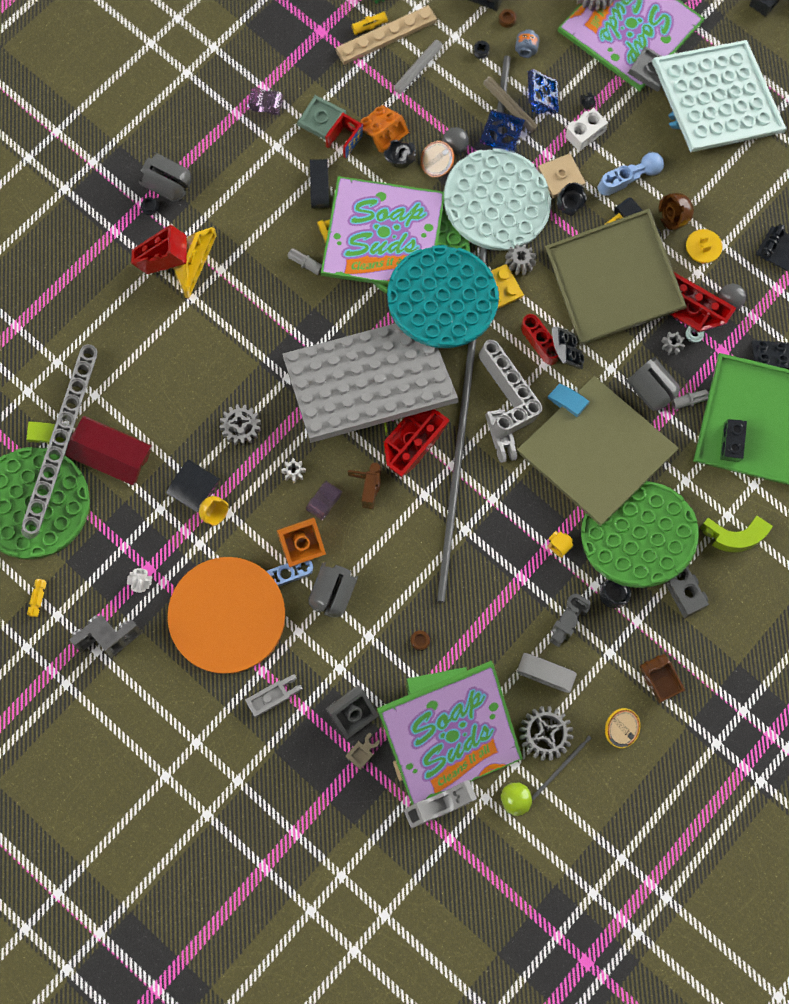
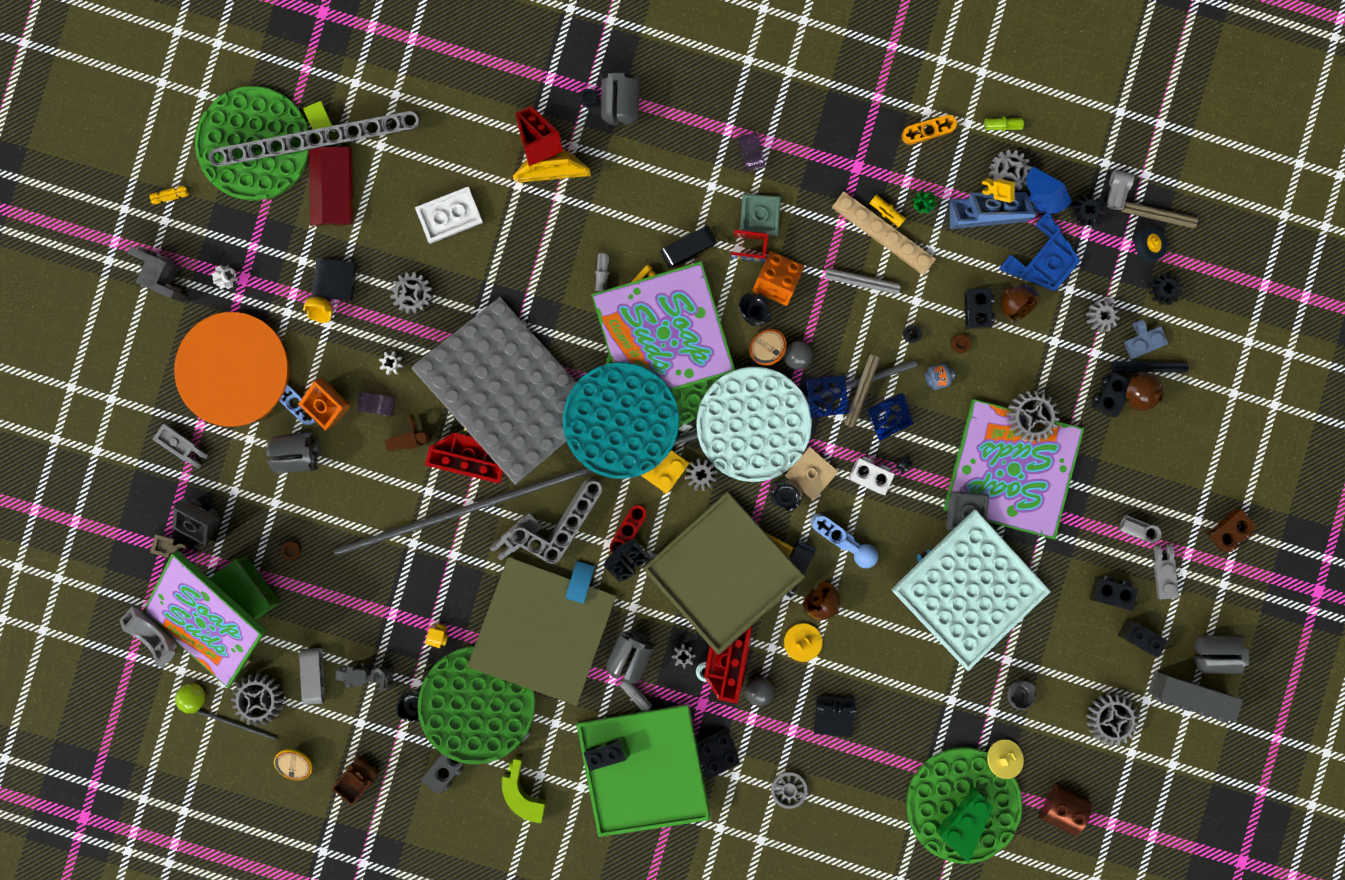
camera: 70 degrees right, 15 degrees up
(188, 363) = (449, 215): none -> white plate

